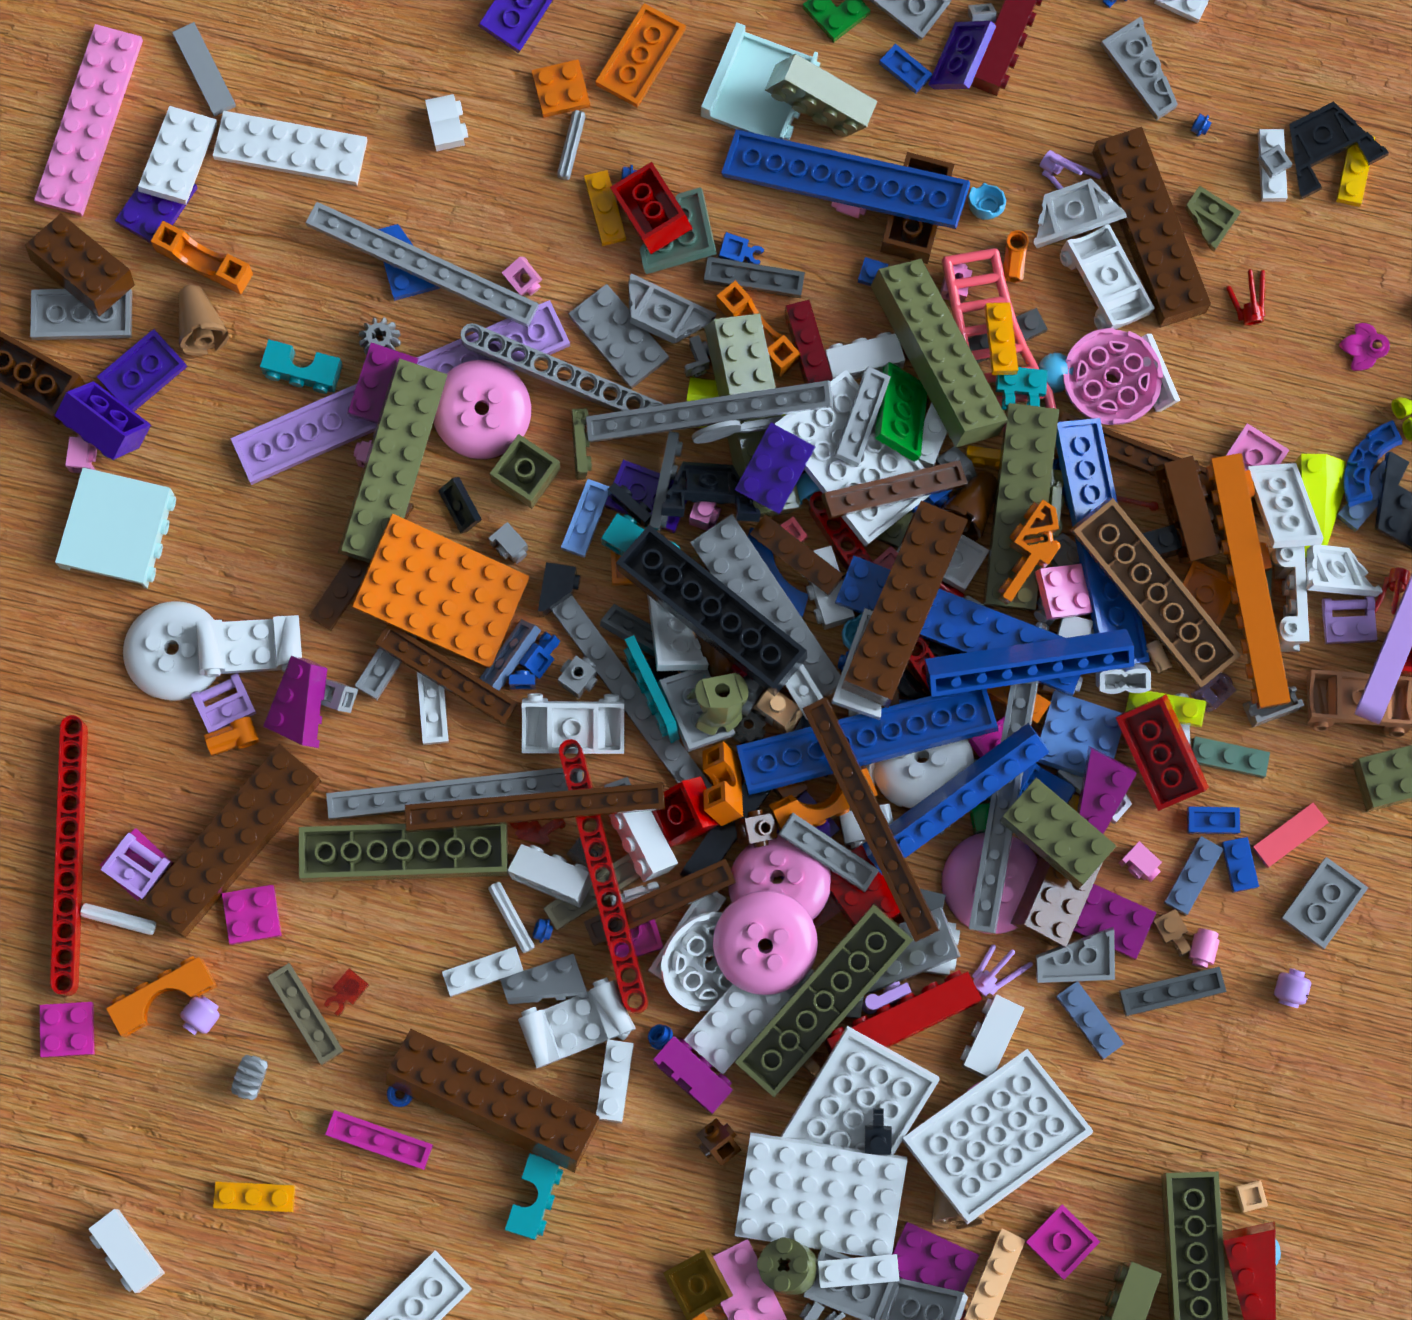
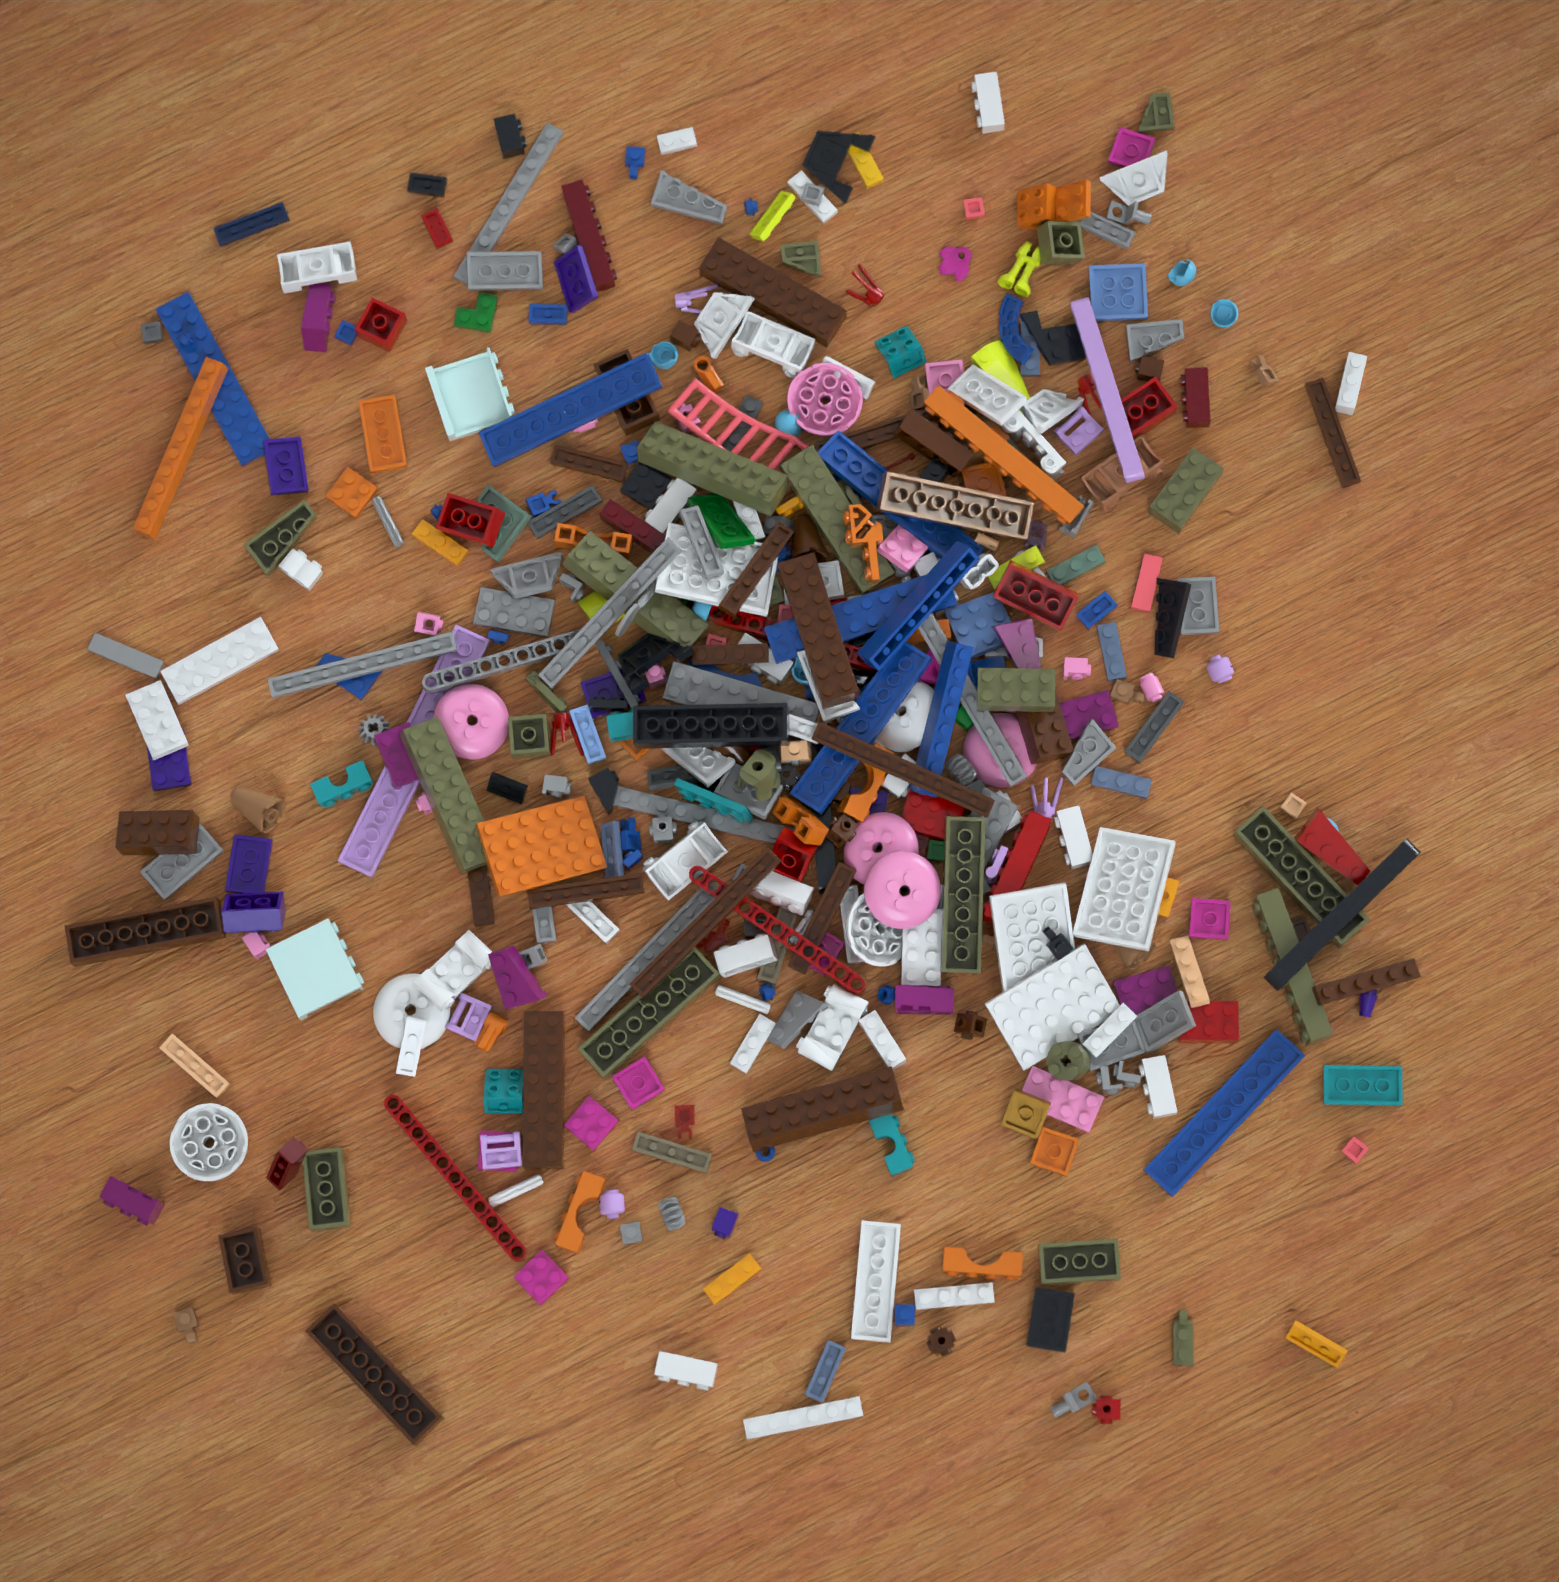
camera: 30 degrees left, 0 degrees up
(88, 120) = (82, 743): bright pink plate -> none
(139, 684) = (411, 1046): none -> white plate
(184, 250) = (210, 773): orange arch -> none
(192, 806) = (503, 1091): none -> teal bracket
(194, 1061) = (631, 1233): none -> light grey plate
(294, 1132) = (724, 1223): none -> dark purple brick
(332, 914) = (638, 1083): none -> dark pink plate
(379, 1139) = (776, 1187): dark pink plate -> none
(448, 73) = (278, 539): none -> olive wedge
(569, 486) = (562, 723): none -> red plant
(581, 347) = (498, 637): none -> blue plate
(775, 468) = (677, 613): dark purple plate -> none
(819, 248) = (589, 463): none -> reddish brown plate
(820, 96) = (514, 372): brick -> none
(828, 852) = (894, 809): light grey tile -> none
(836, 930) = (936, 851): none -> green plate
(858, 316) = (645, 485): none -> black plate
(932, 868) = (960, 770): none -> light grey gear
(1001, 338) = (742, 430): light orange plate -> none
(1024, 199) = (685, 336): none -> reddish brown brick
(1026, 382) = (774, 446): teal plate -> none
(1038, 1182) = (1168, 897): none -> light orange plate
(1215, 151) = (772, 216): none -> neon yellow plate
(1216, 448) = (919, 394): none -> medium nougat plate
(1232, 392) = (901, 351): none -> teal bracket
(1240, 864) = (1132, 623): blue plate -> none
(1294, 882) = (1171, 609): none -> black wing

